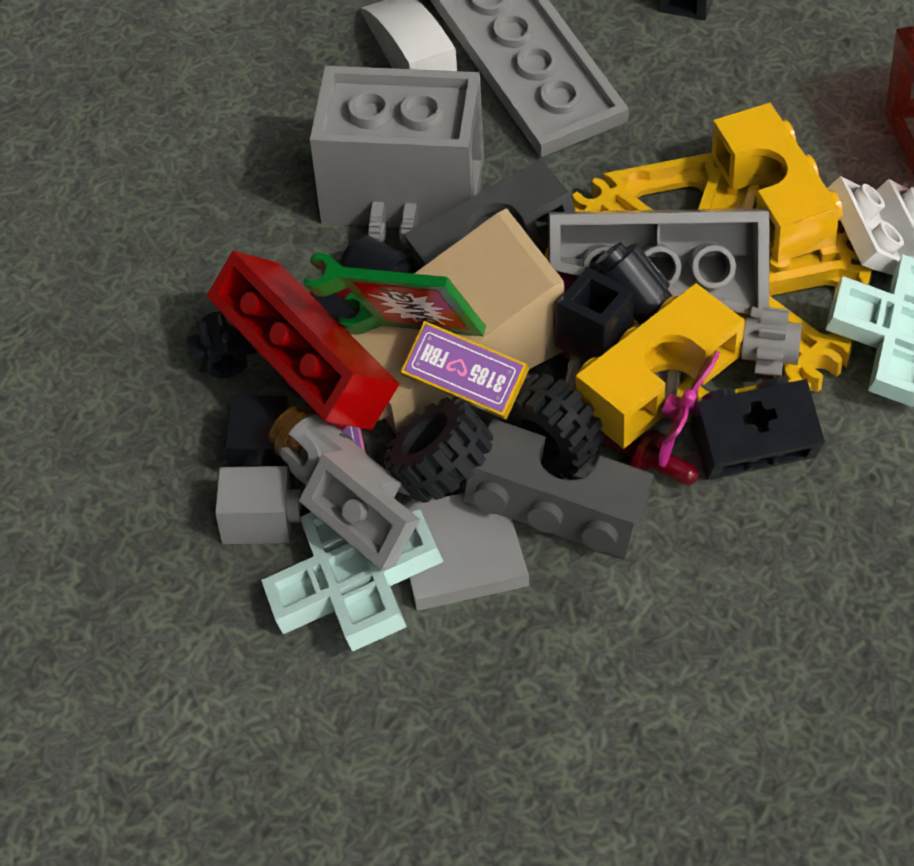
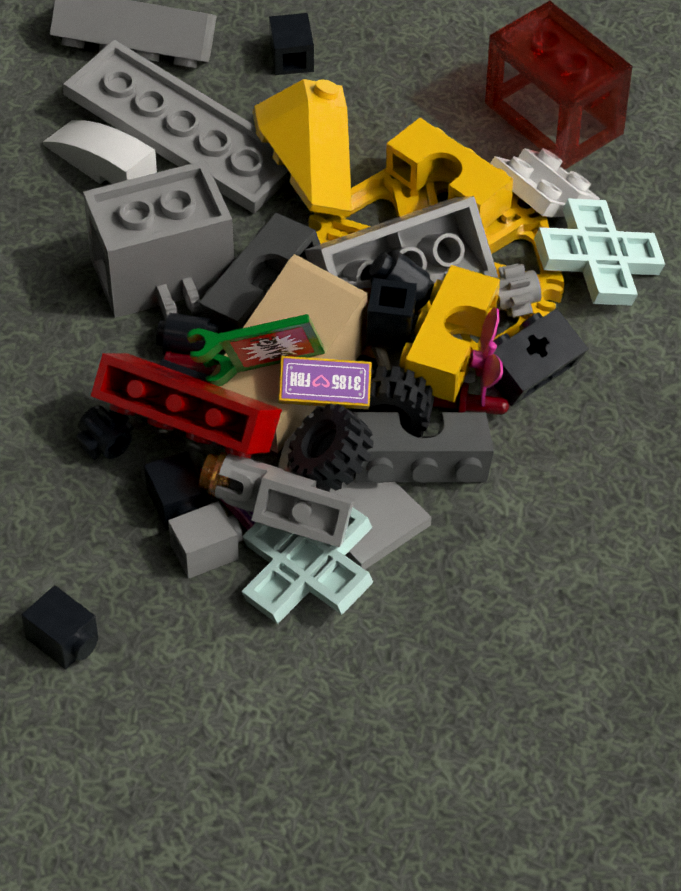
camera: 30 degrees left, 0 degrees up
(44, 545) = (61, 627): none -> black brick
(633, 95) = (312, 140): none -> yellow wedge

